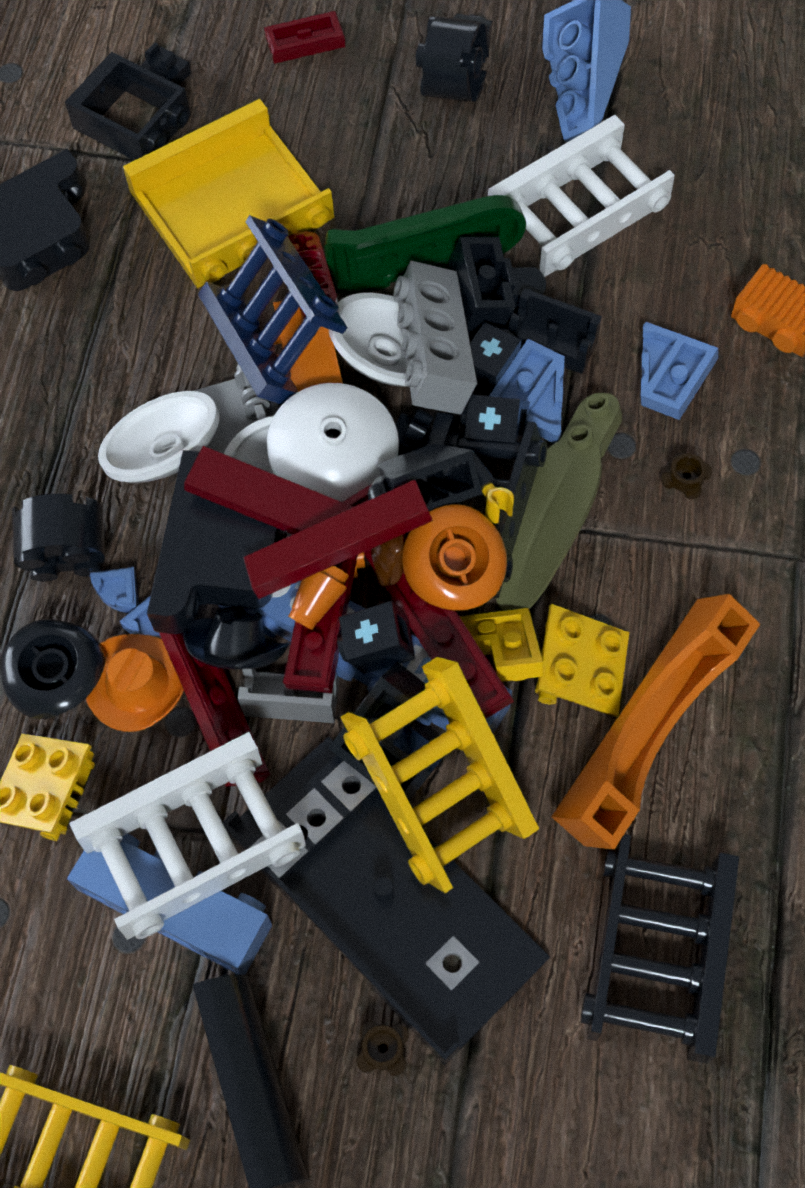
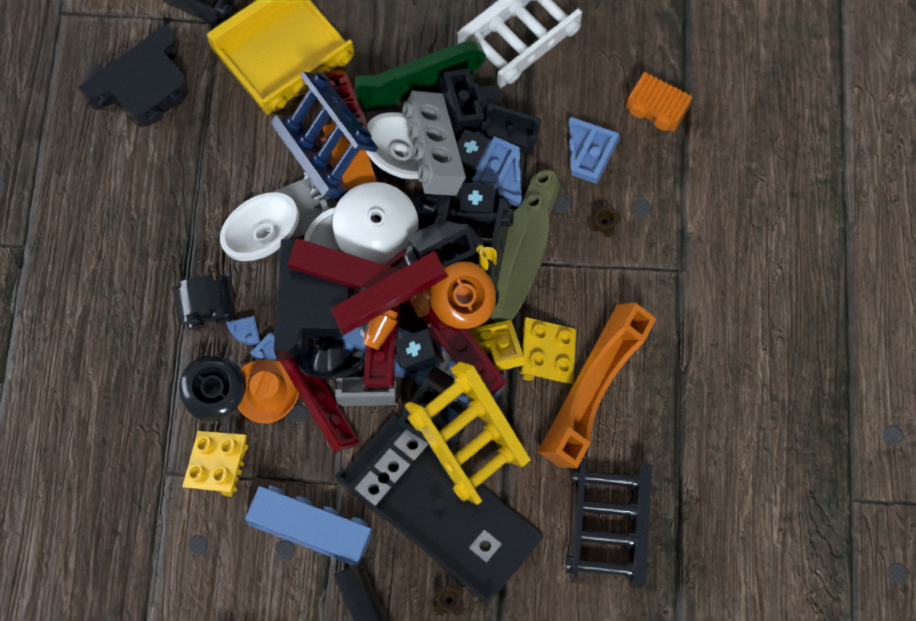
camera: 10 degrees left, 5 degrees up
(148, 809) = (316, 455): white fence -> none

